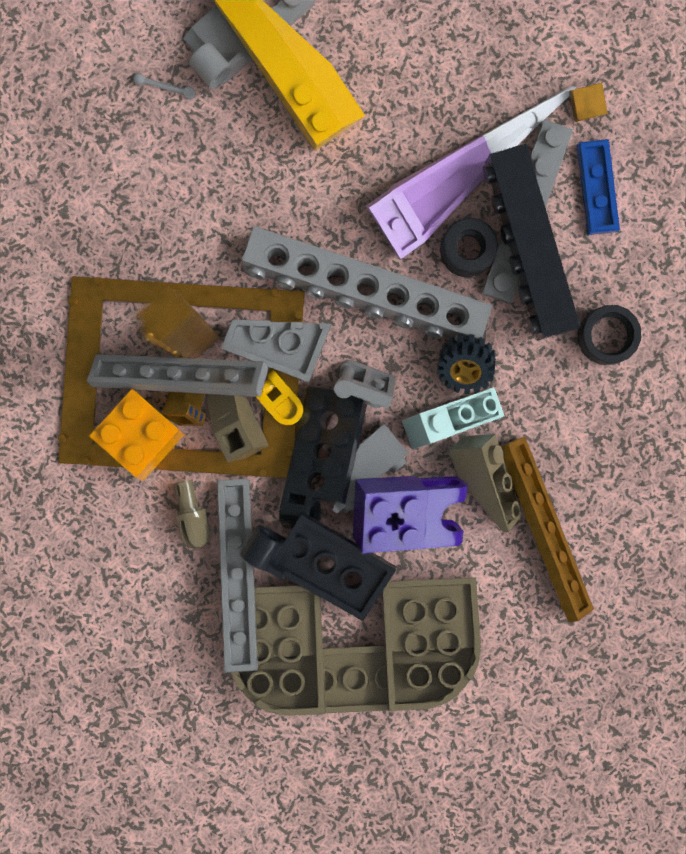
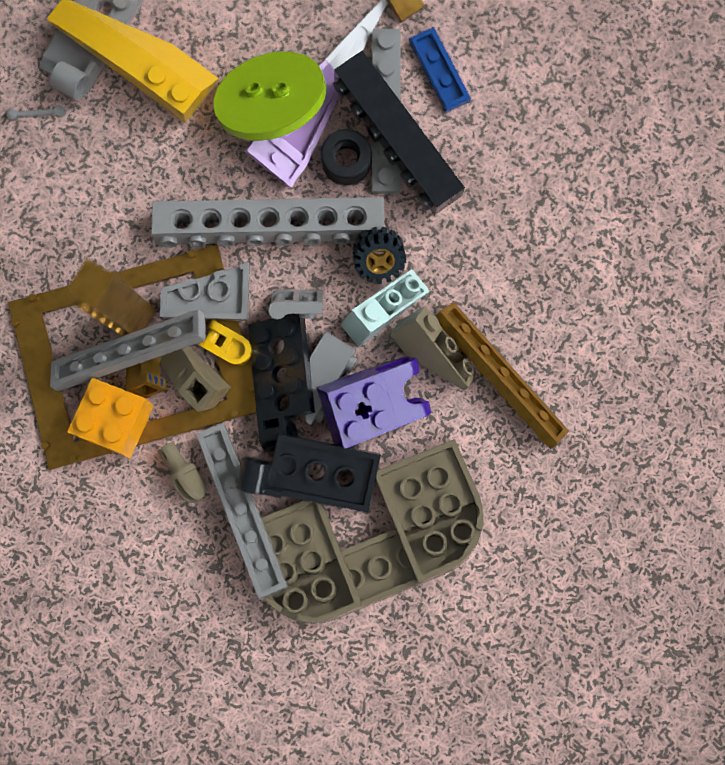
camera: 20 degrees left, 5 degrees down
(413, 156) = (270, 96): none -> lime plate
(633, 335) = (502, 169): black tyre -> none

